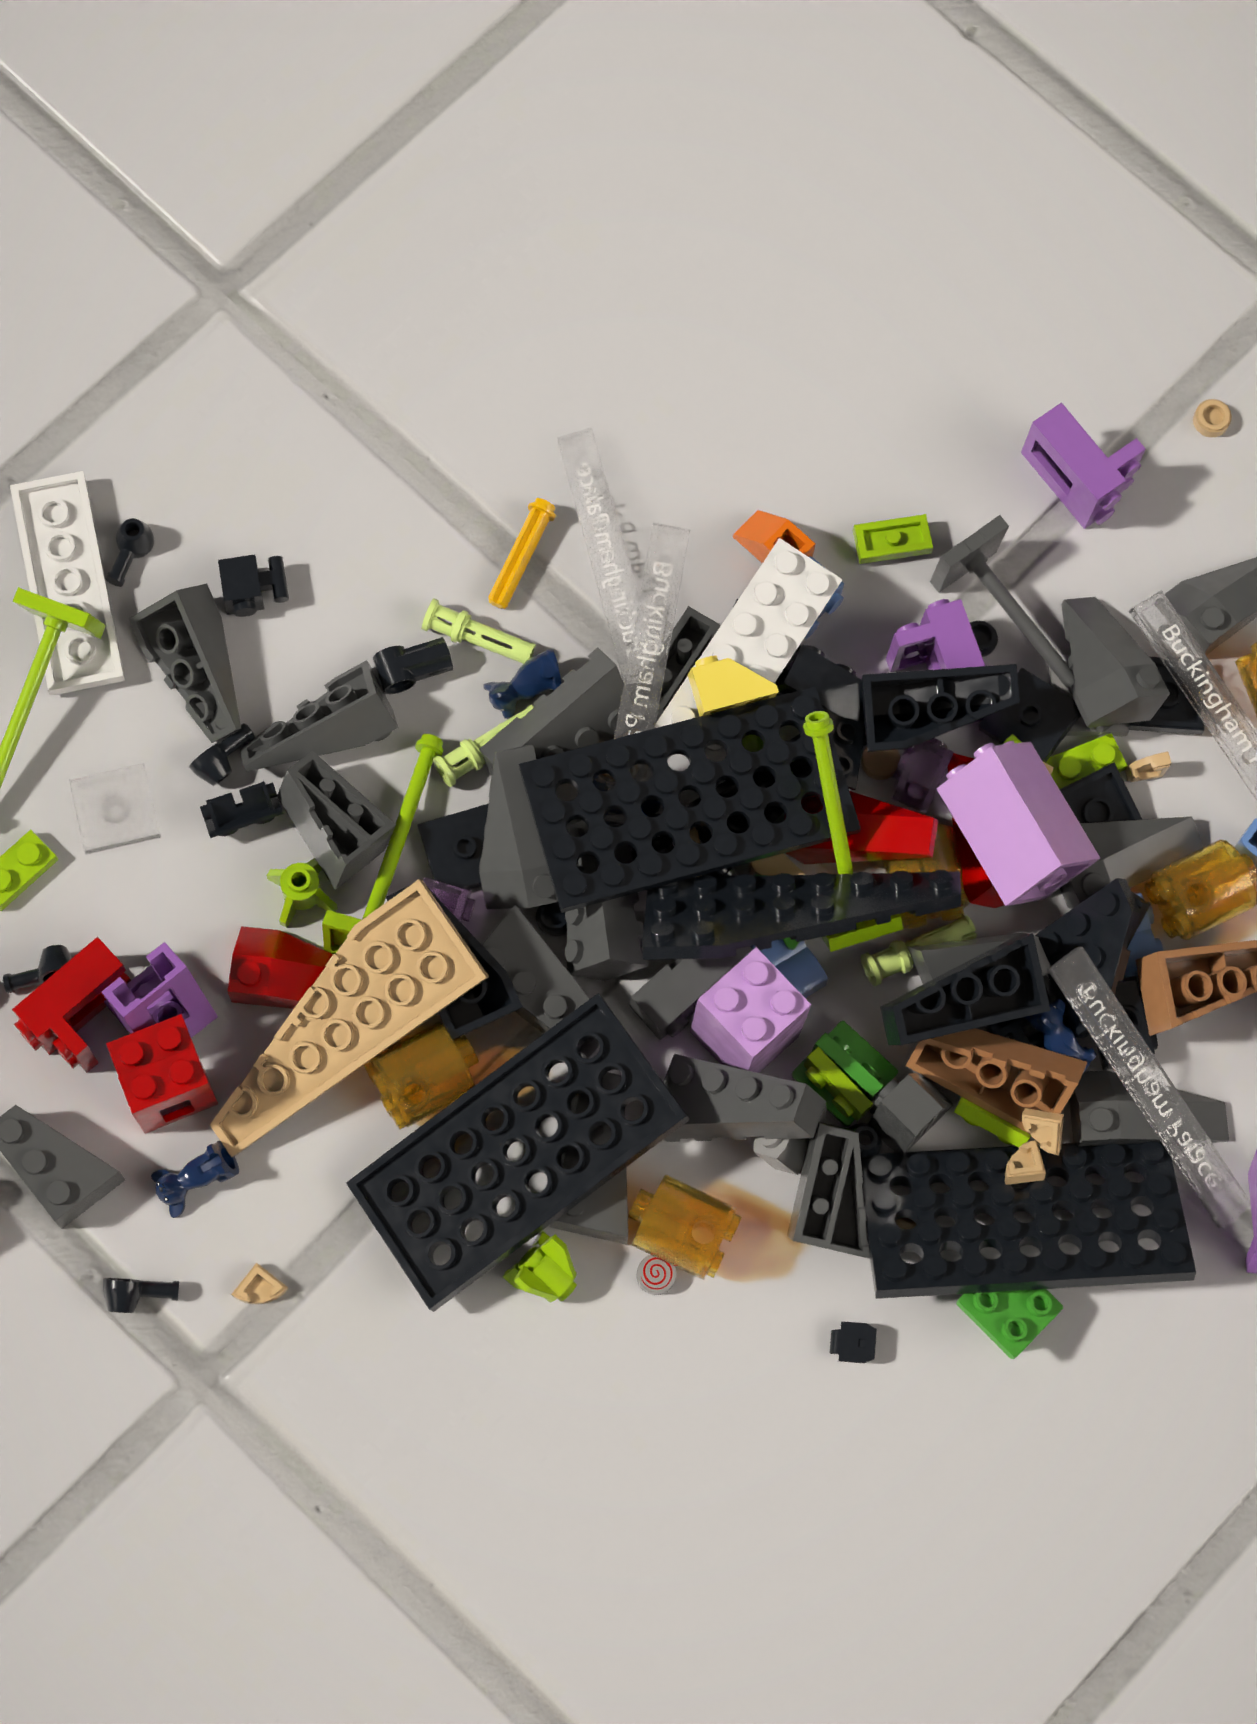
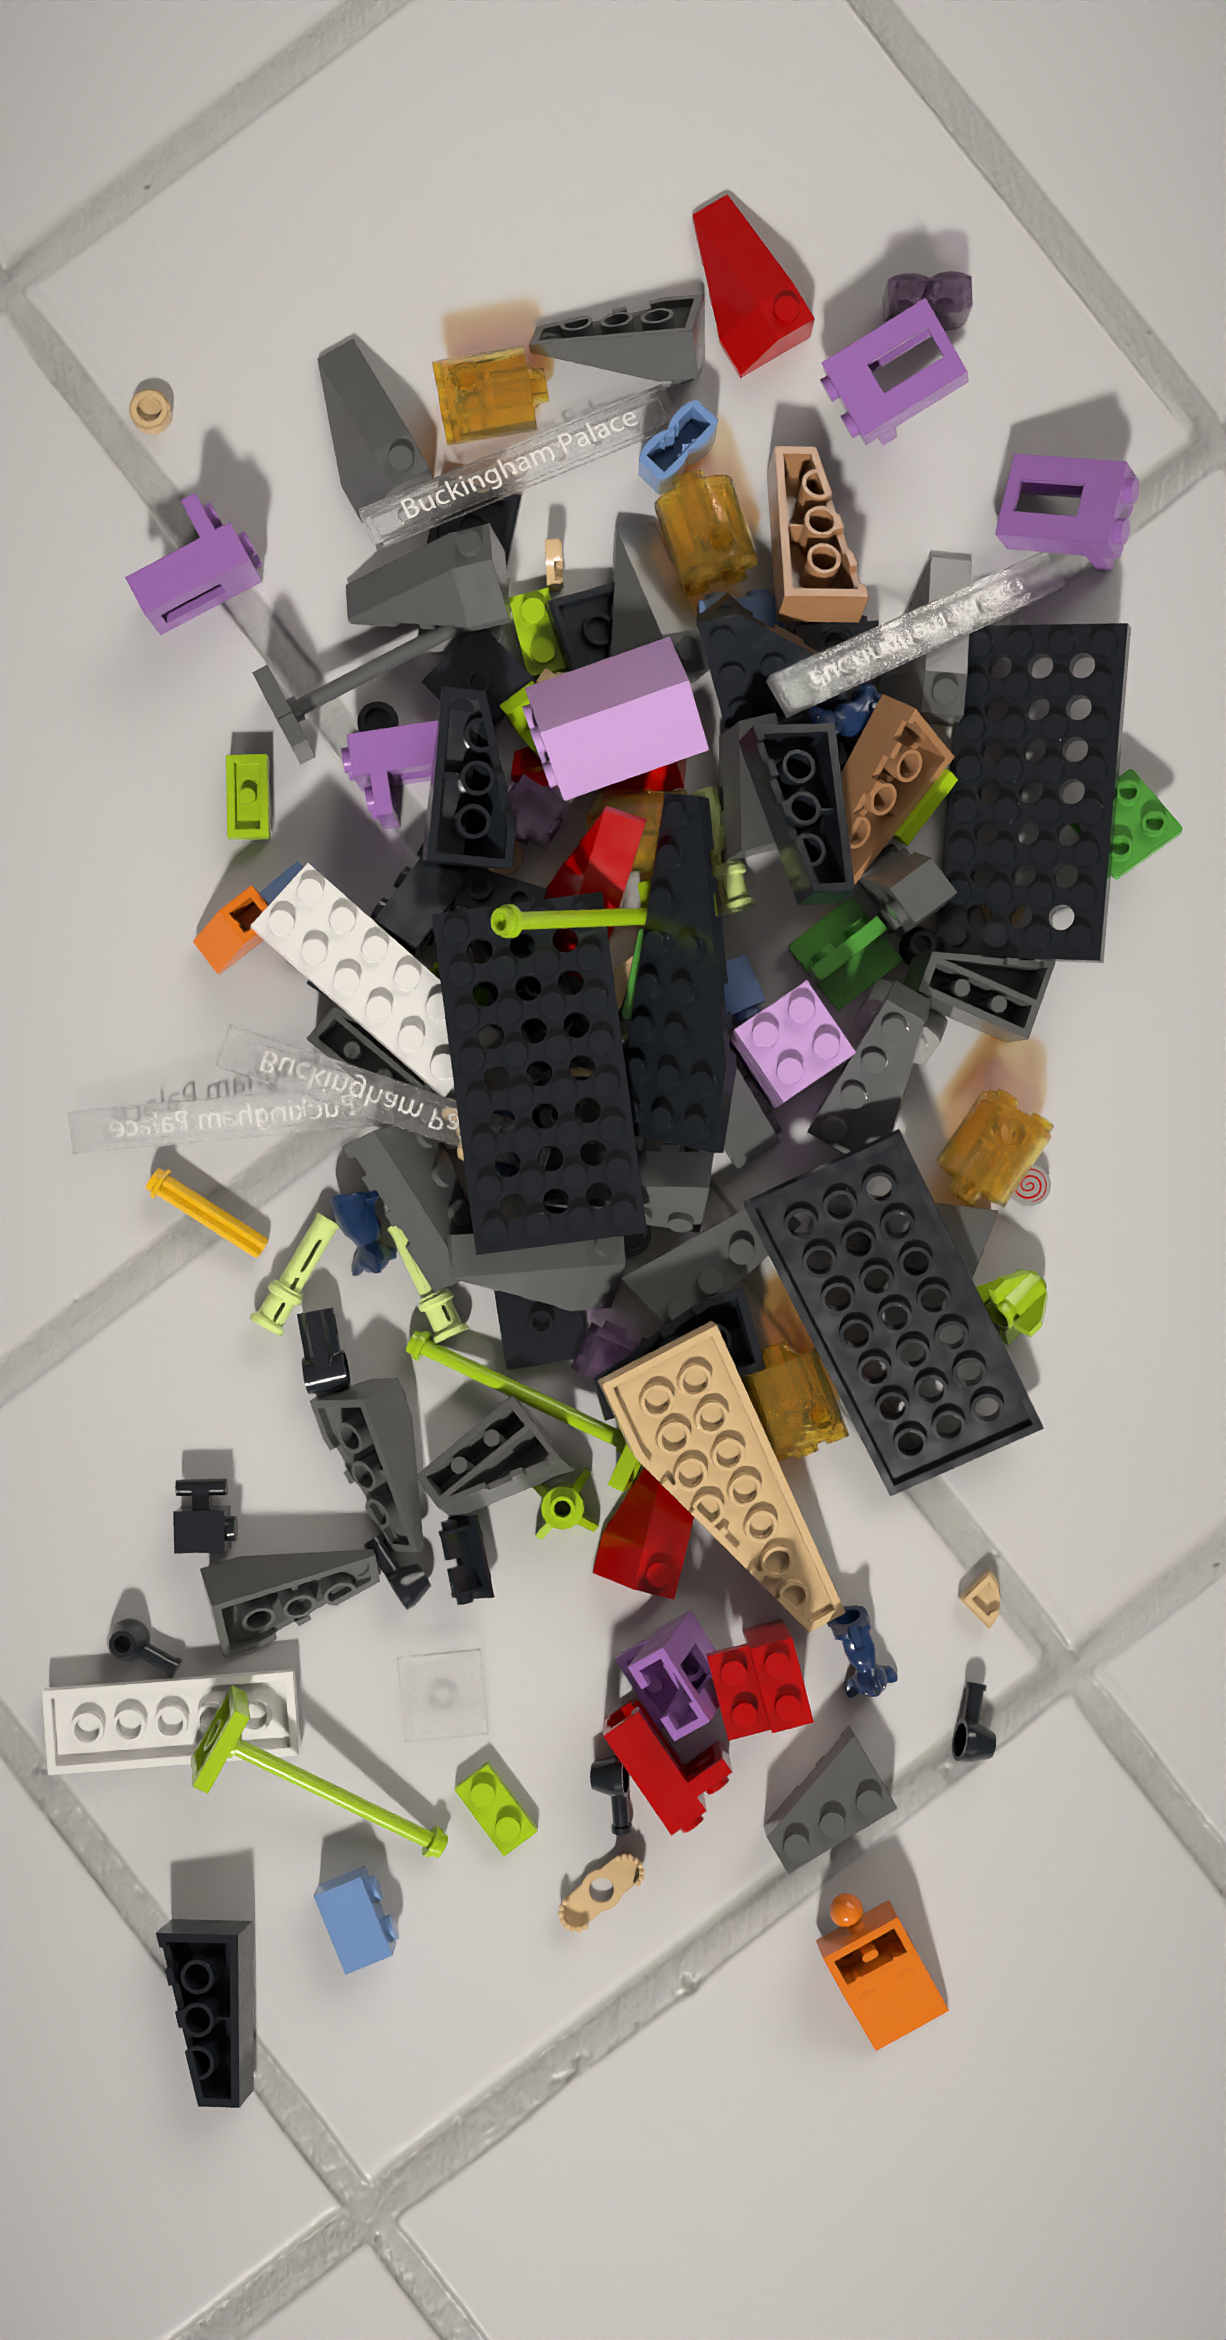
camera: 70 degrees left, 15 degrees up
(726, 685) = (421, 1013): light yellow slope -> none
(846, 1095) = (879, 955): lime plate -> none
(854, 1342) = (1130, 992): black piece -> none
(1025, 1165) = (978, 780): tan tile -> none
(1044, 1128) = (945, 753): tan tile -> none

